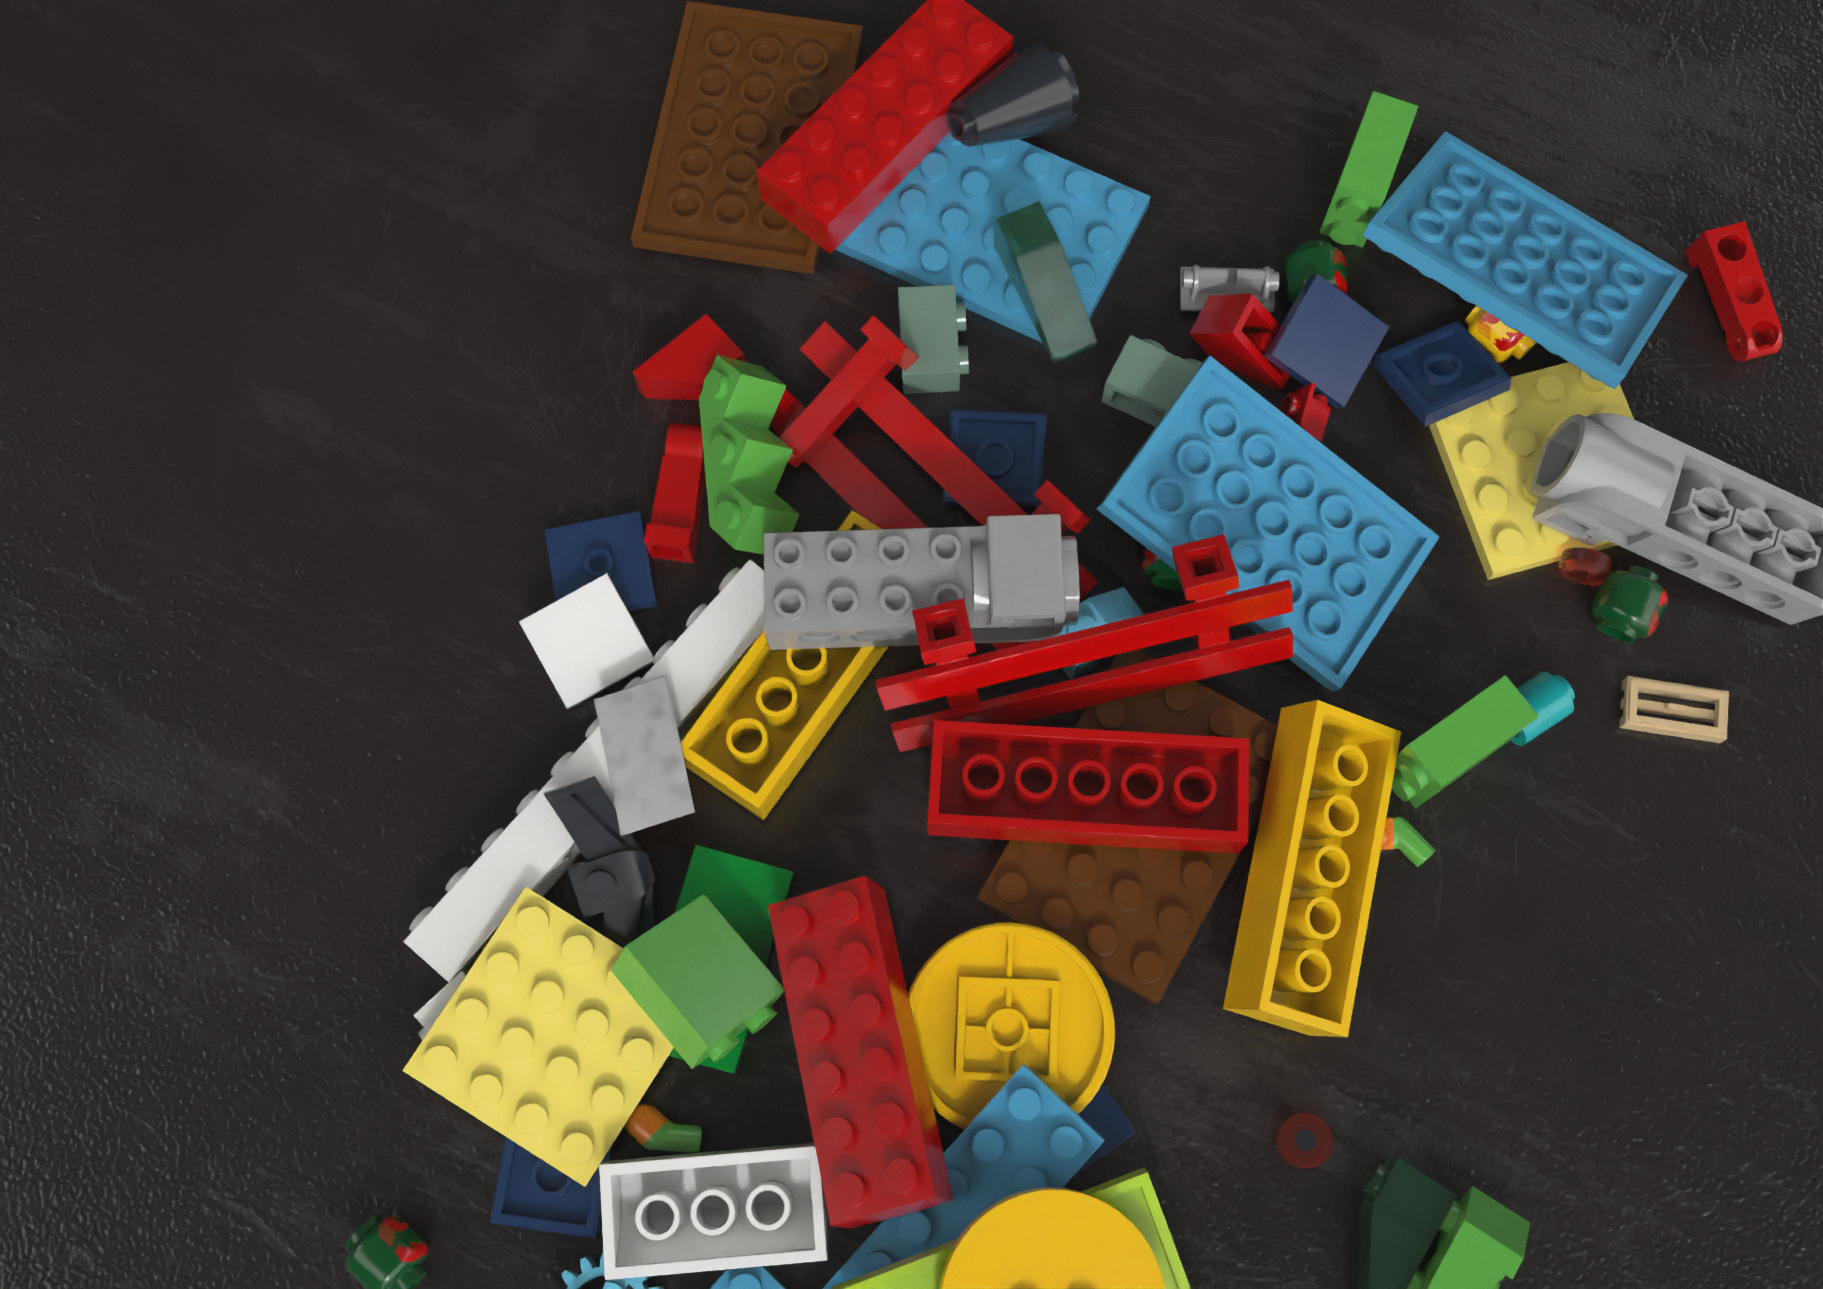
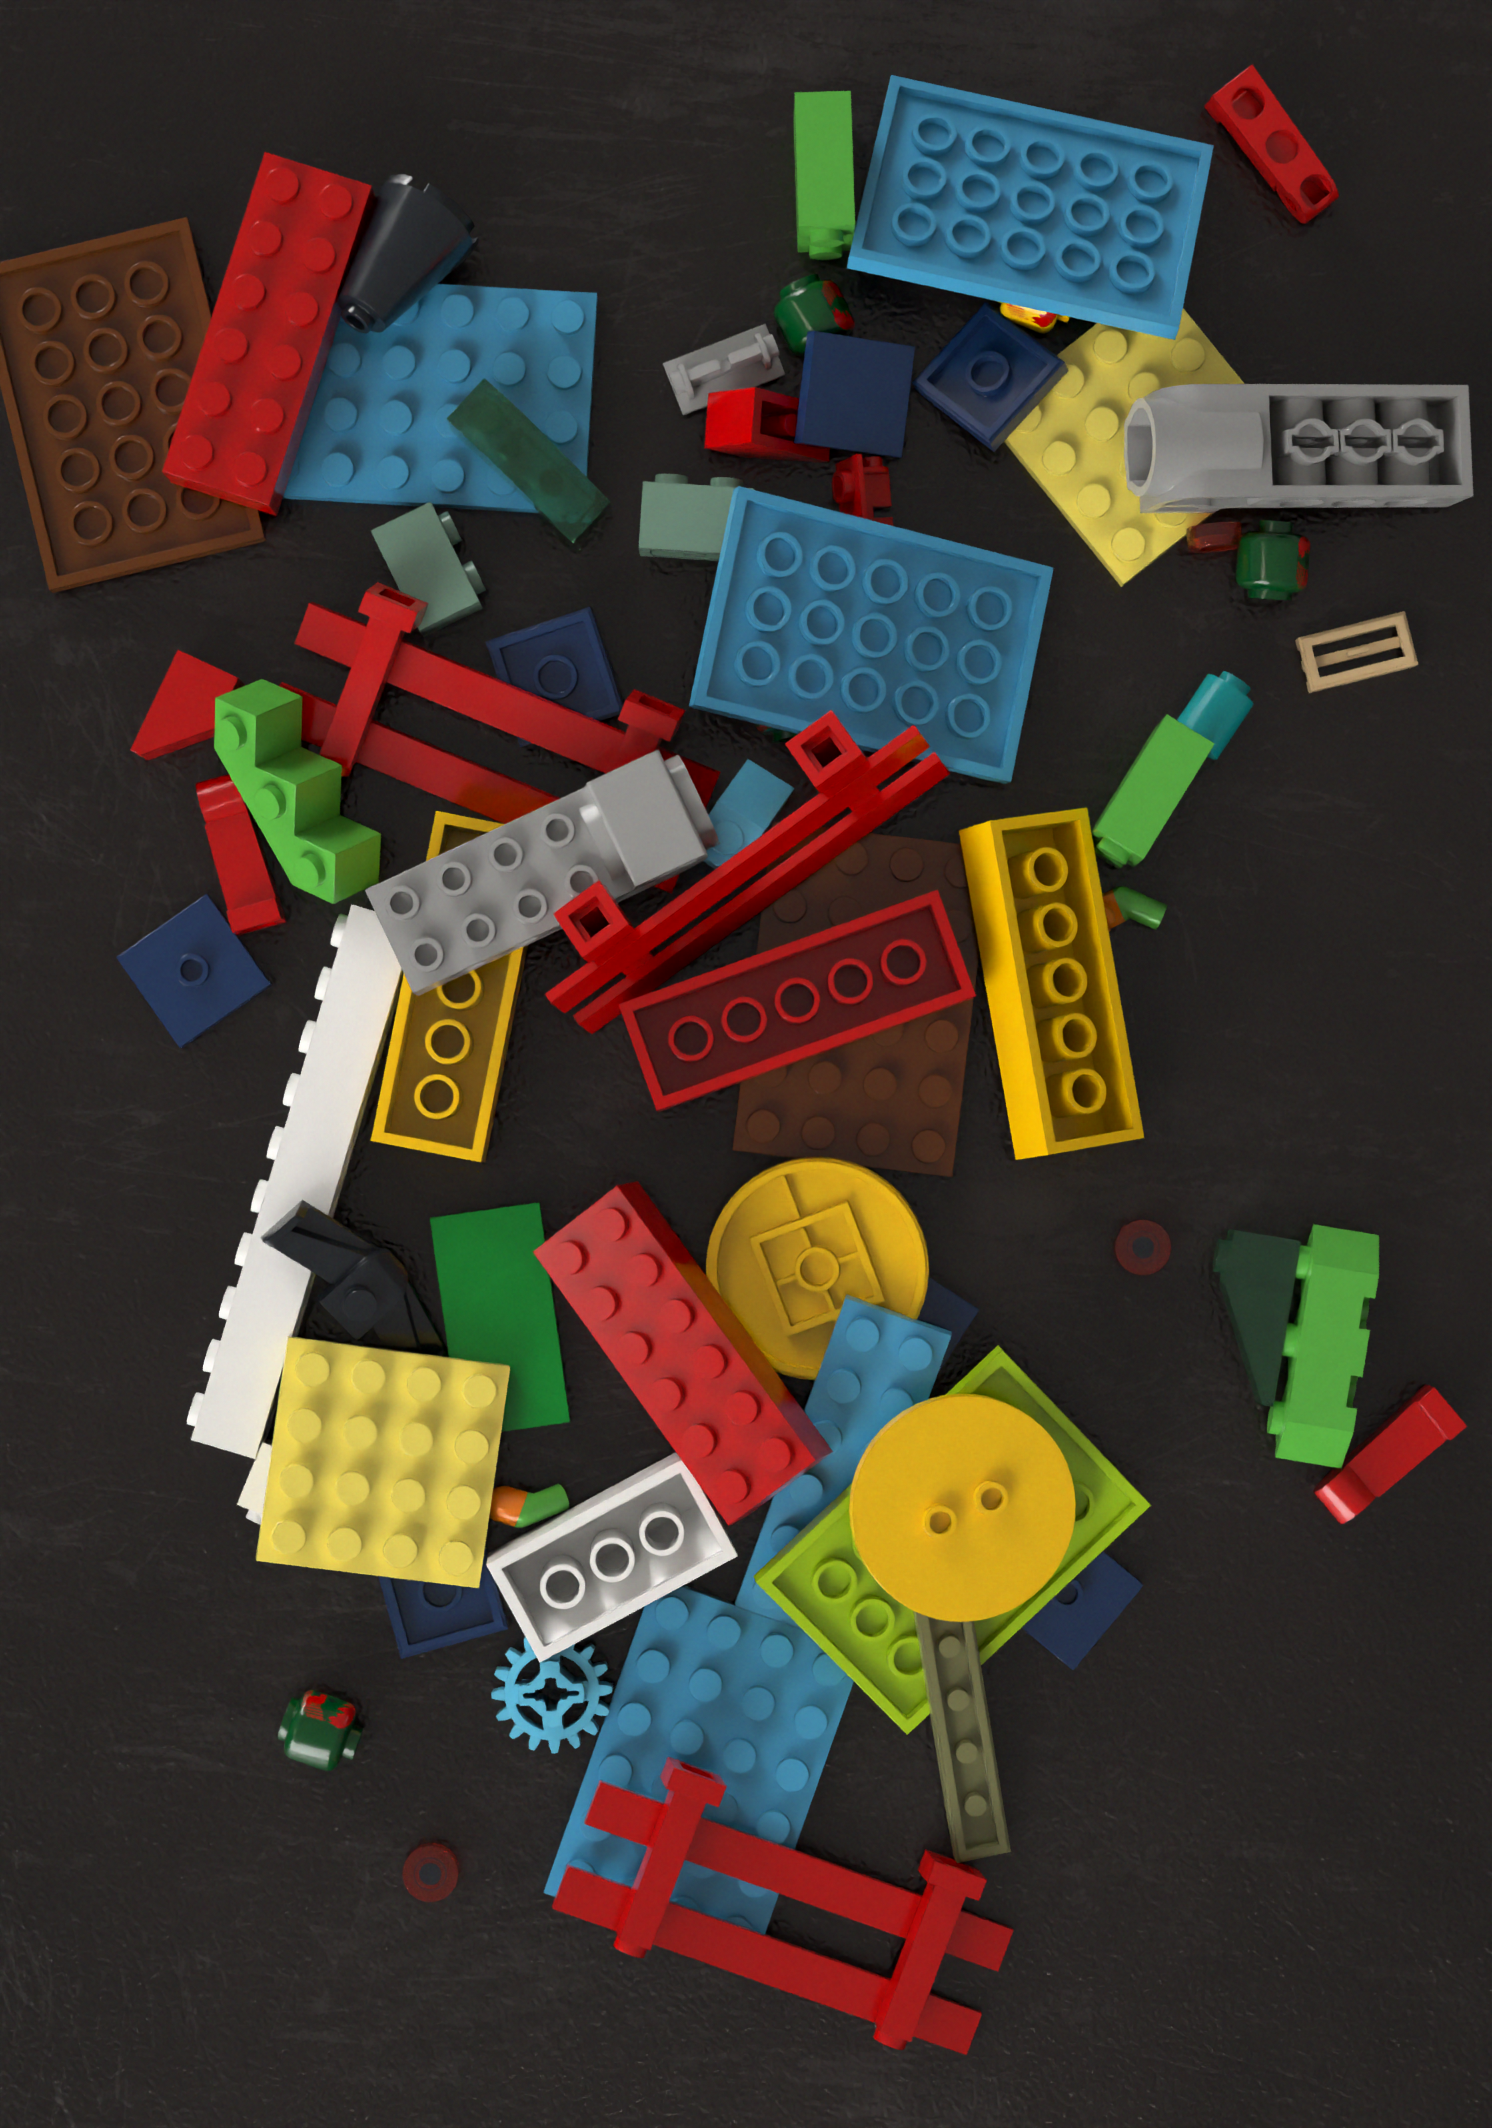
camera: 25 degrees left, 15 degrees up
(587, 641) = (221, 1057): white tile -> none
(644, 756) = (341, 1157): flat silver sticker -> none
(698, 982) = (501, 1355): bright green brick -> none

